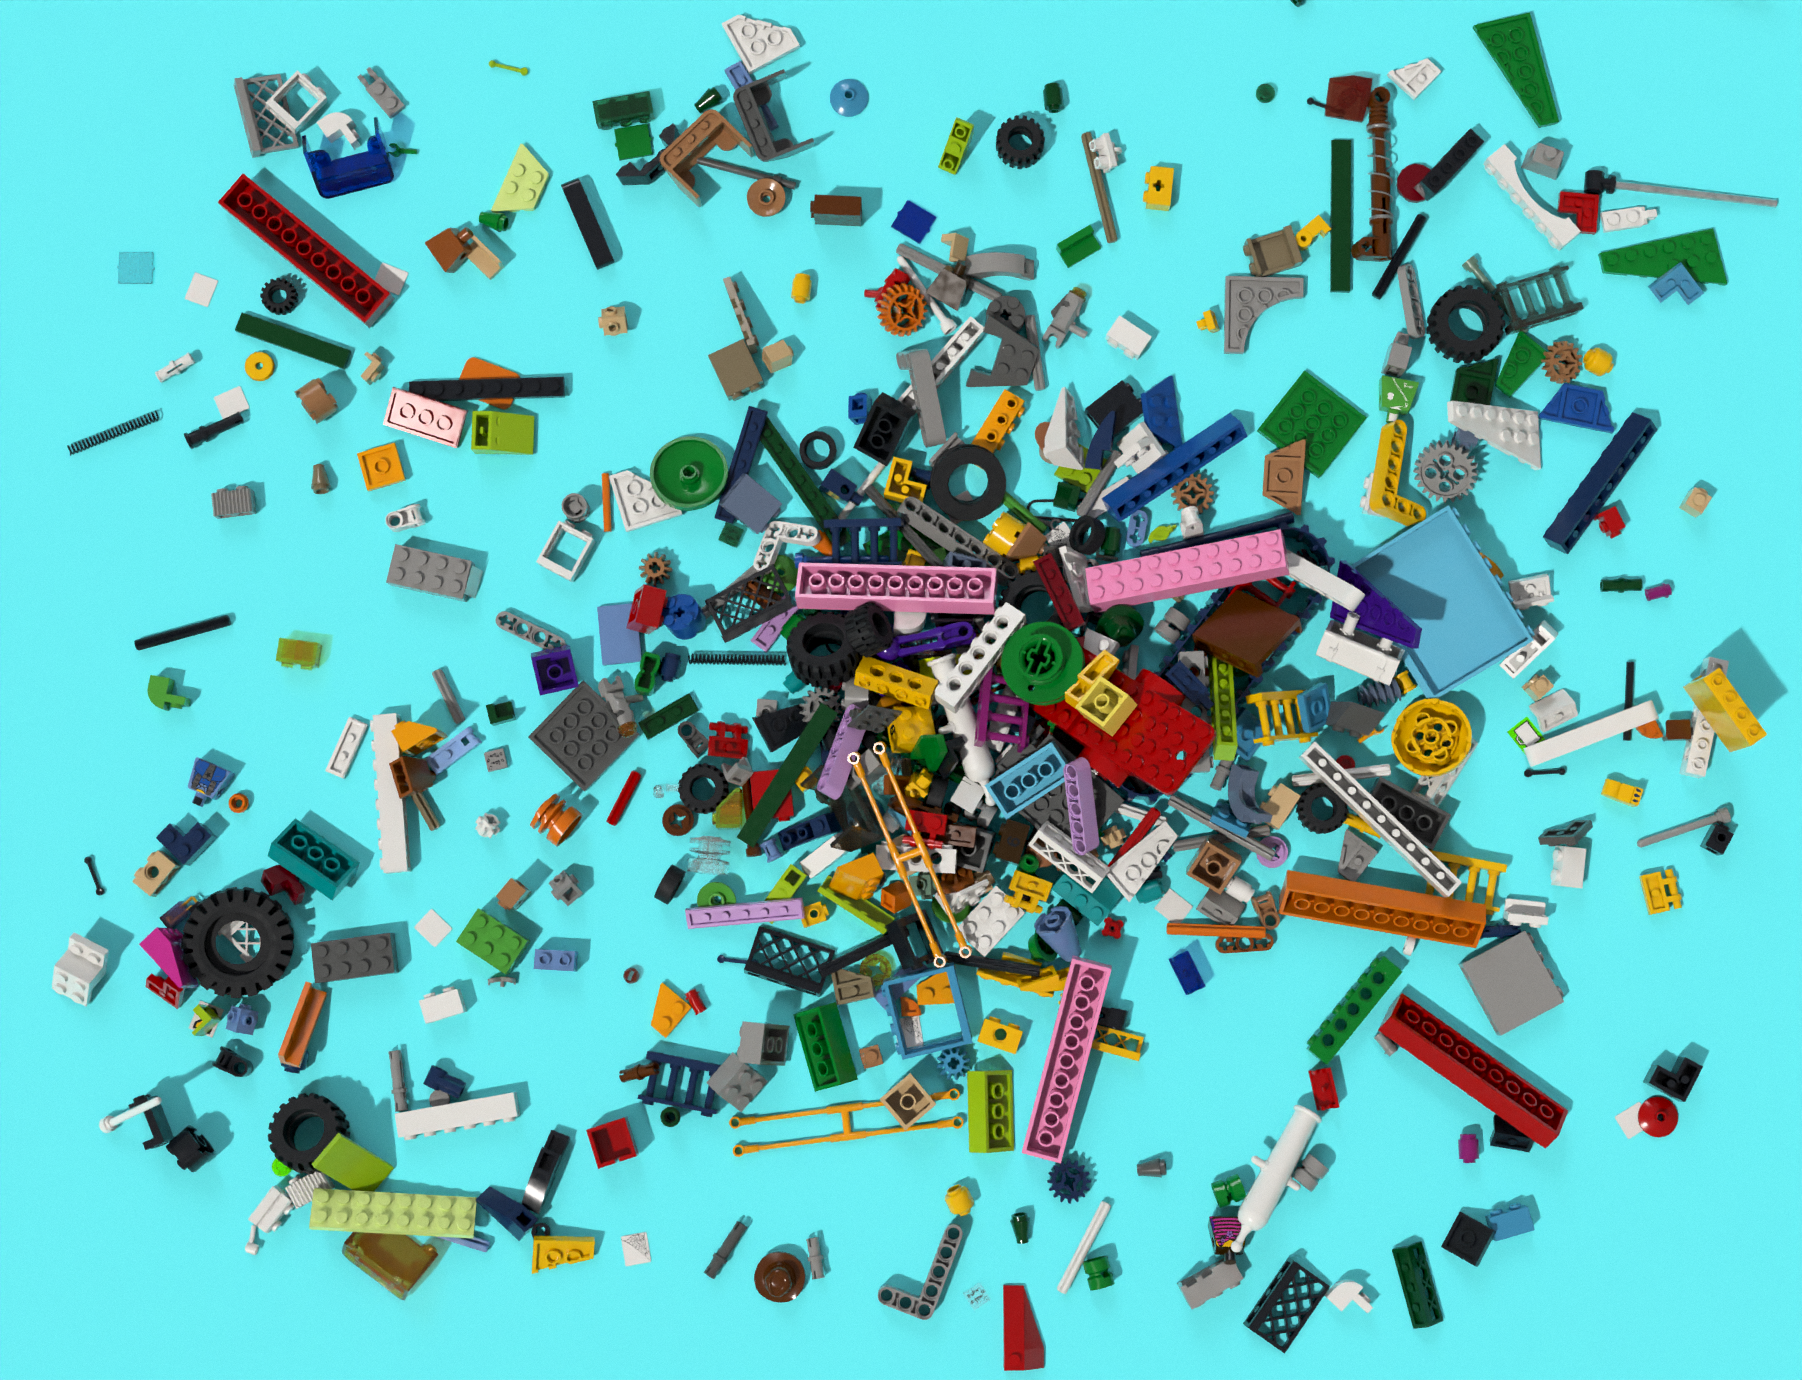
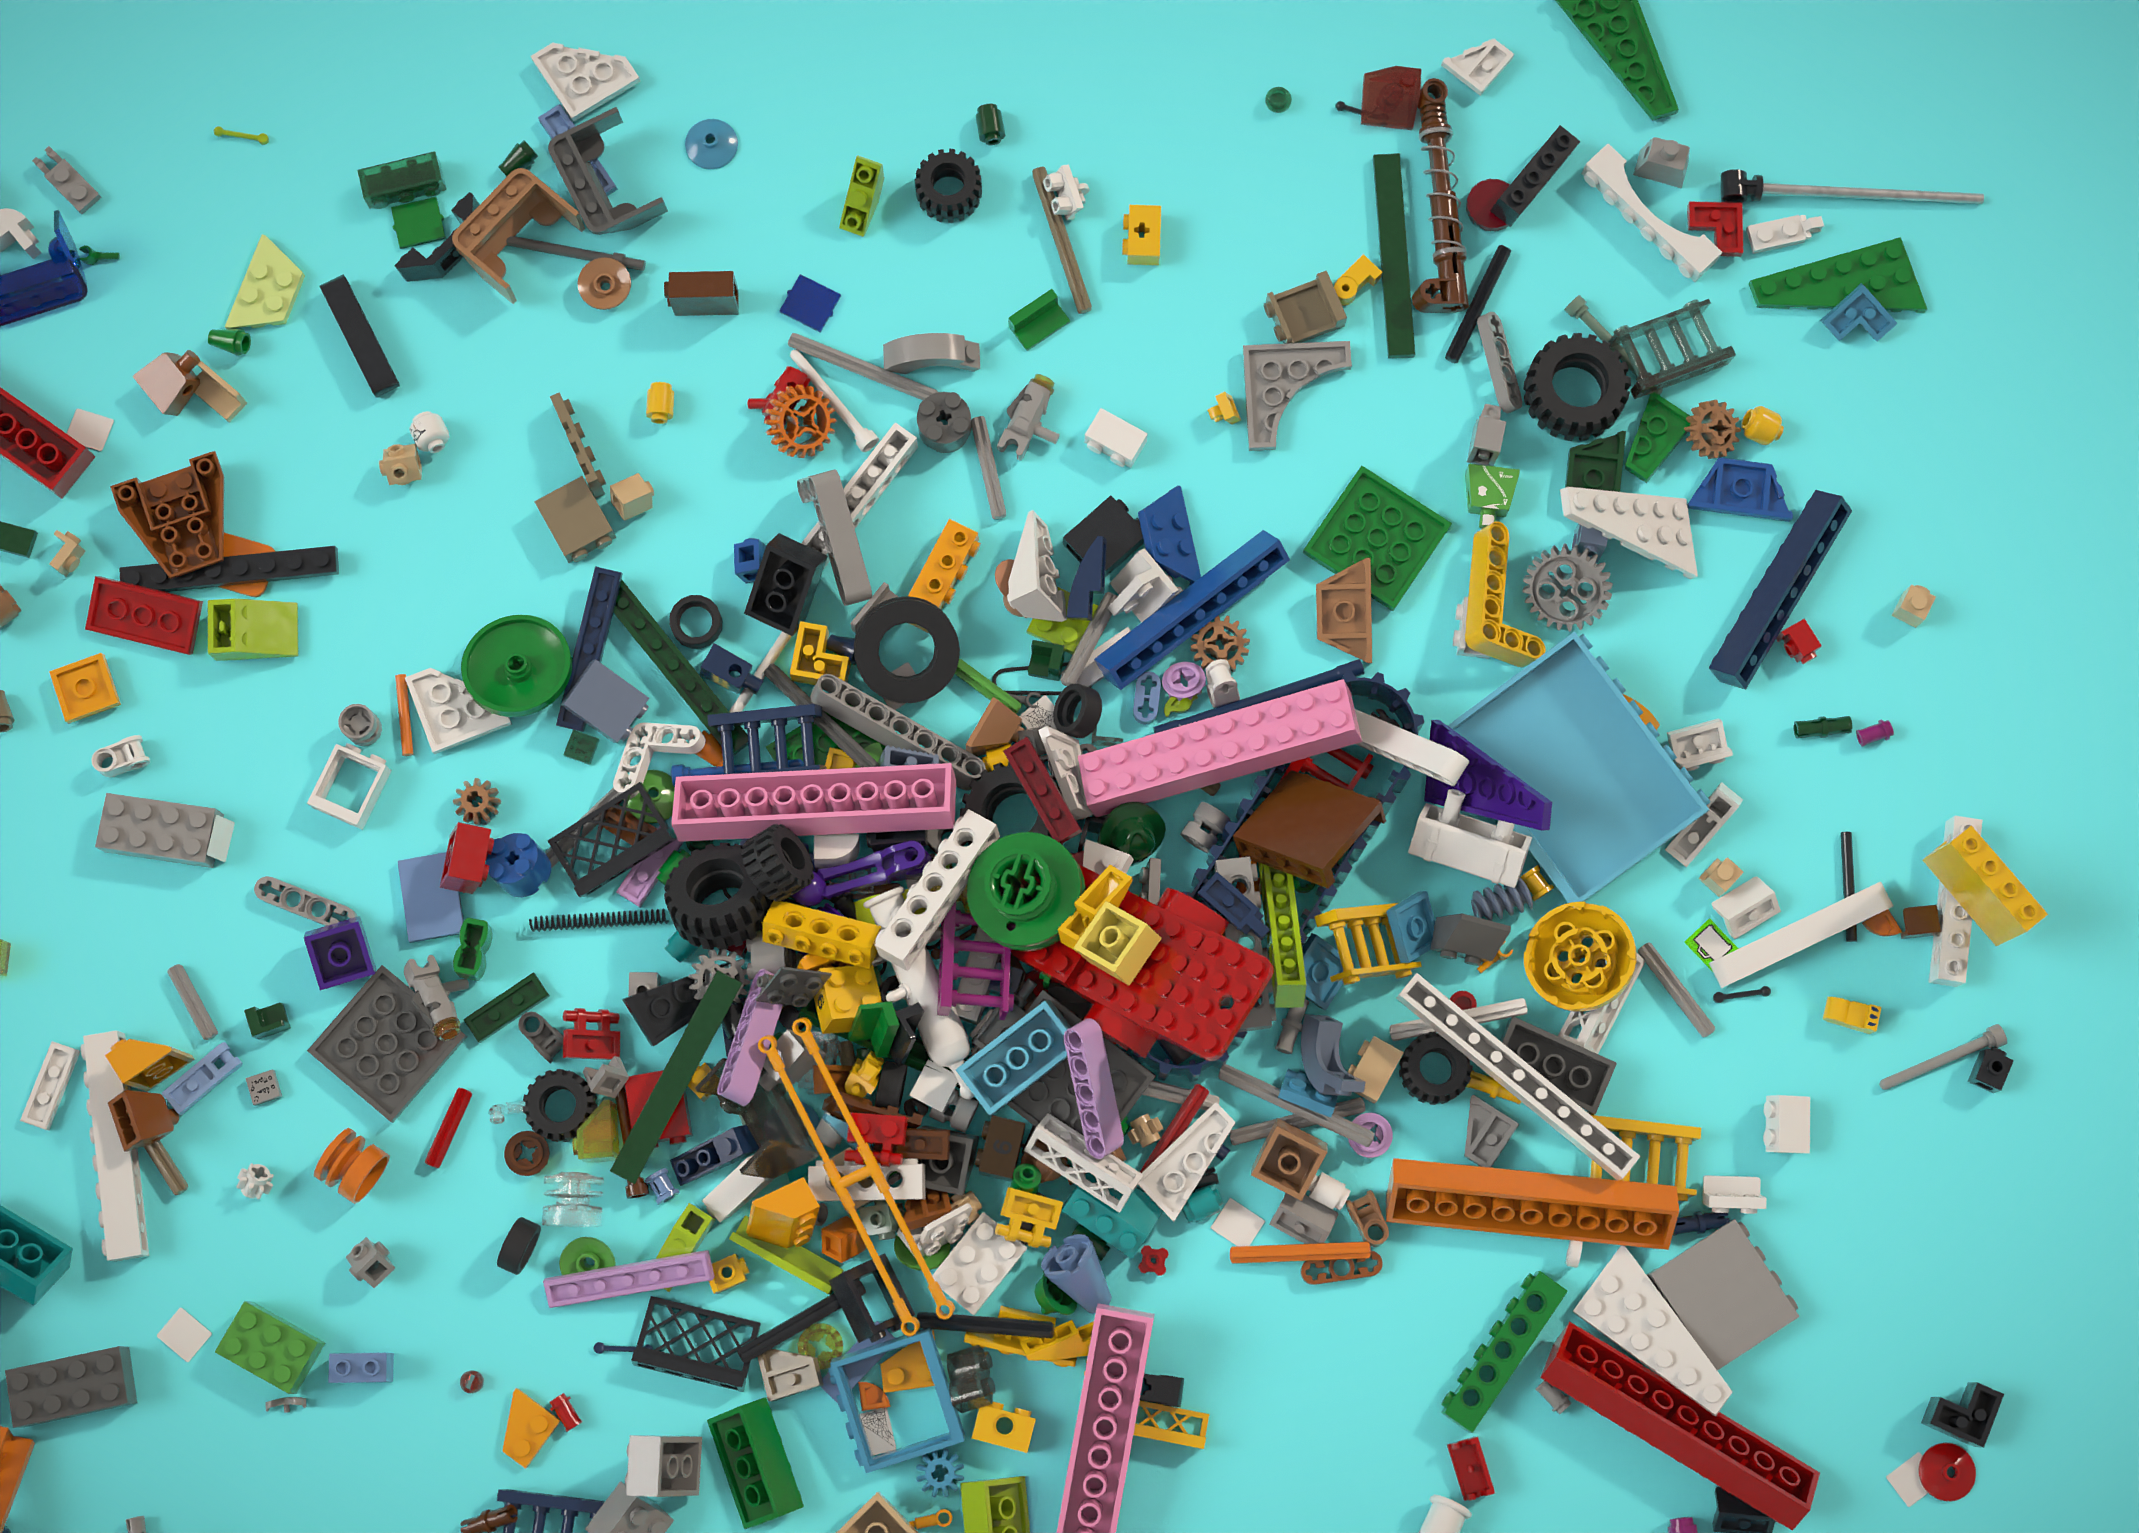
camera: 10 degrees left, 5 degrees down
(443, 1005) = (201, 1446): white brick -> none
(453, 346) = (178, 514): none -> dark orange wedge
(512, 894) = (294, 1277): medium nougat brick -> none
(634, 298) = (429, 432): none -> white head
(670, 667) = (504, 937): dark blue brick -> none
(871, 1056) = (822, 1472): medium nougat brick -> none
(951, 285) = (866, 384): torso -> none
(958, 246) = (872, 329): tan panel -> none
(979, 1000) = (970, 1378): none -> clear smoke brick
(1004, 533) = (961, 717): yellow brick -> none
(1012, 362) = (958, 478): dark grey wing -> none
(1112, 541) = (1113, 717): dark green brick -> none
(1171, 514) = (1191, 672): none -> lavender gear
(1187, 972) = (1263, 1316): clear blue hinge -> none
(1451, 996) = (1640, 1321): none -> white wing
(1498, 765) = (1676, 989): none -> light grey axle
(1570, 835) = (1783, 1080): dark grey plate -> none
(1655, 894) = (1912, 1153): yellow plate -> none

